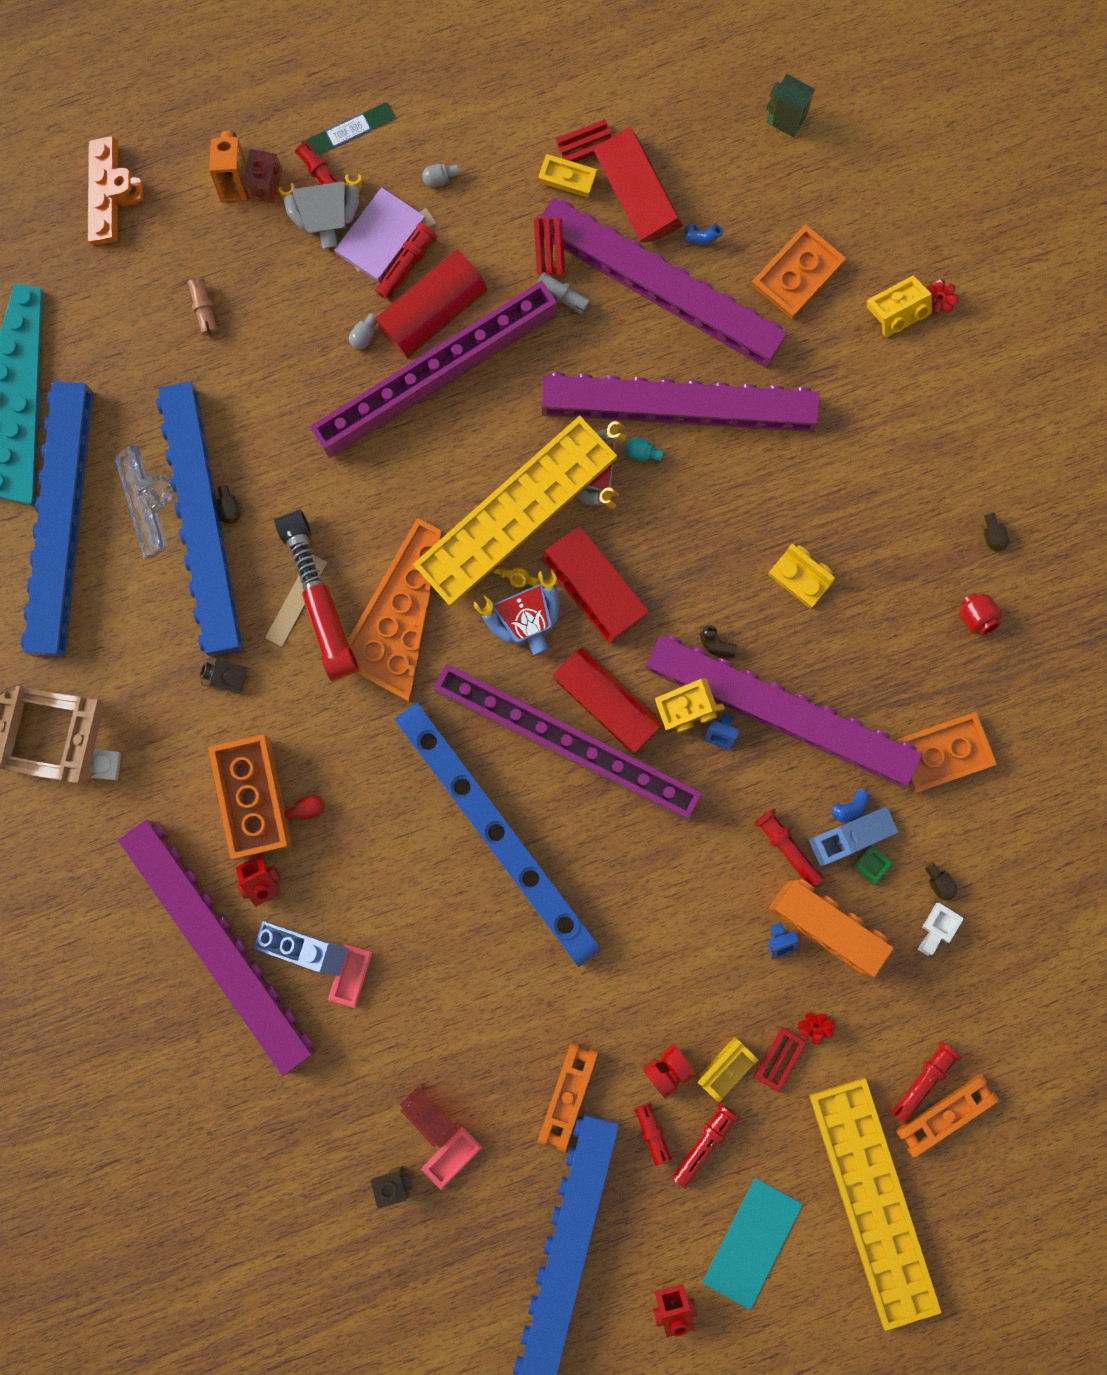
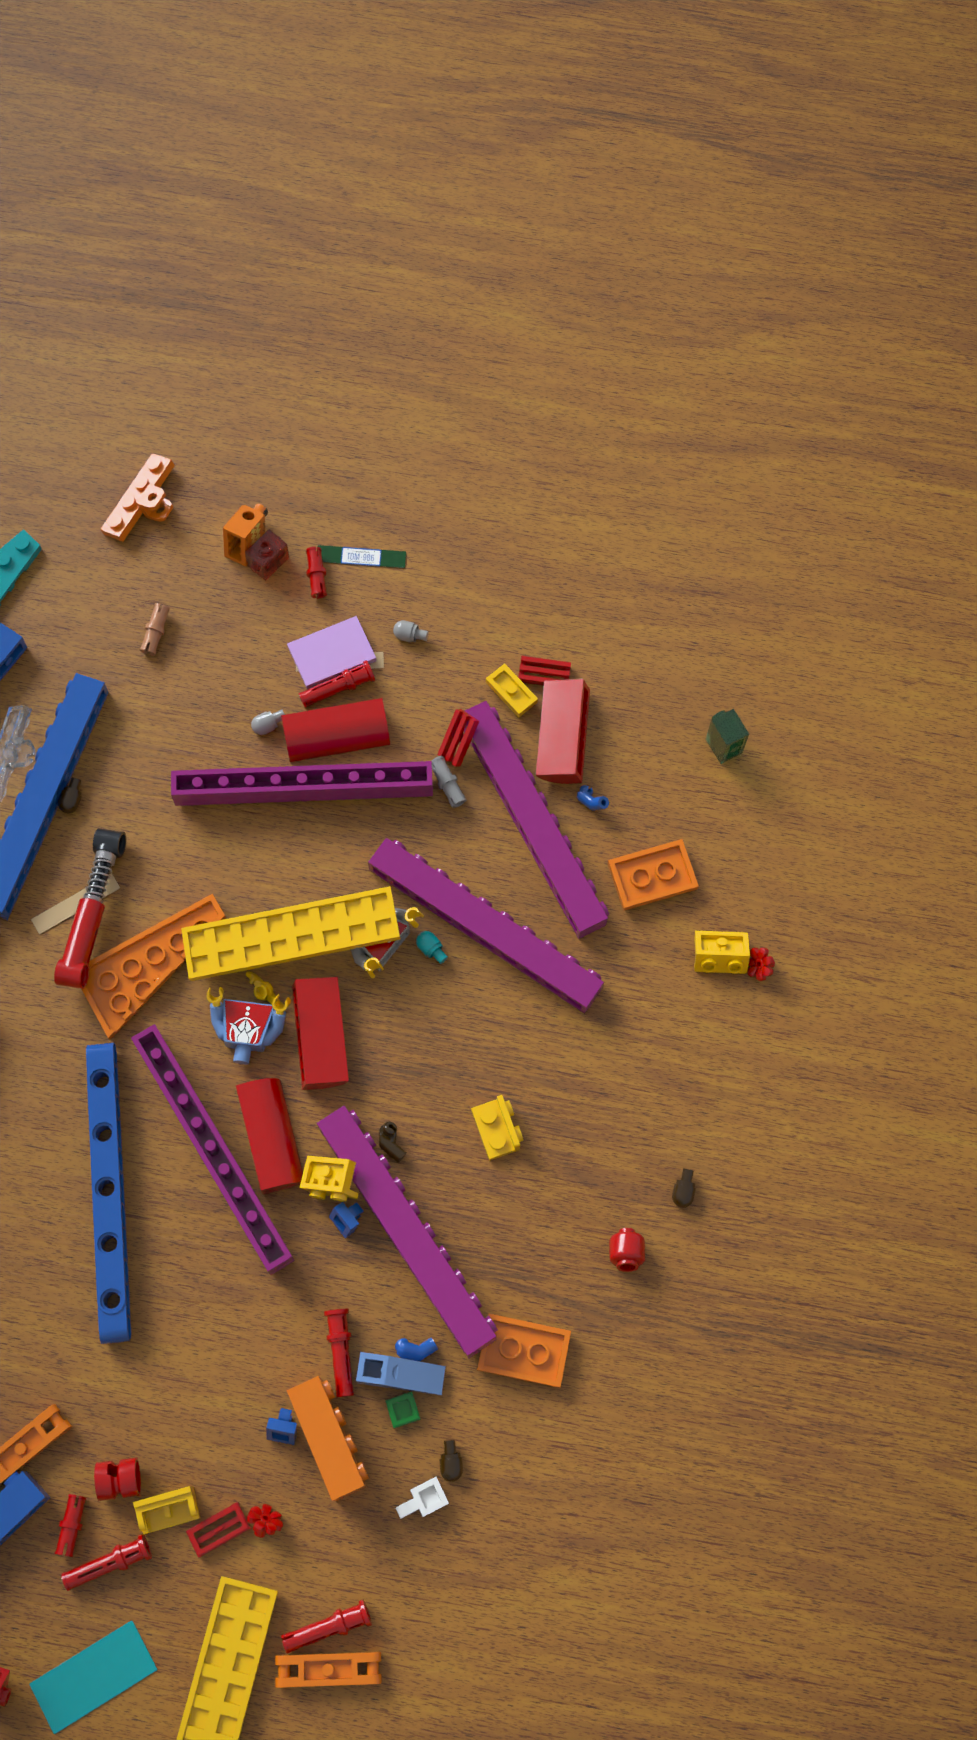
camera: 25 degrees right, 10 degrees down
(323, 208) = (299, 606): light grey torso -> none

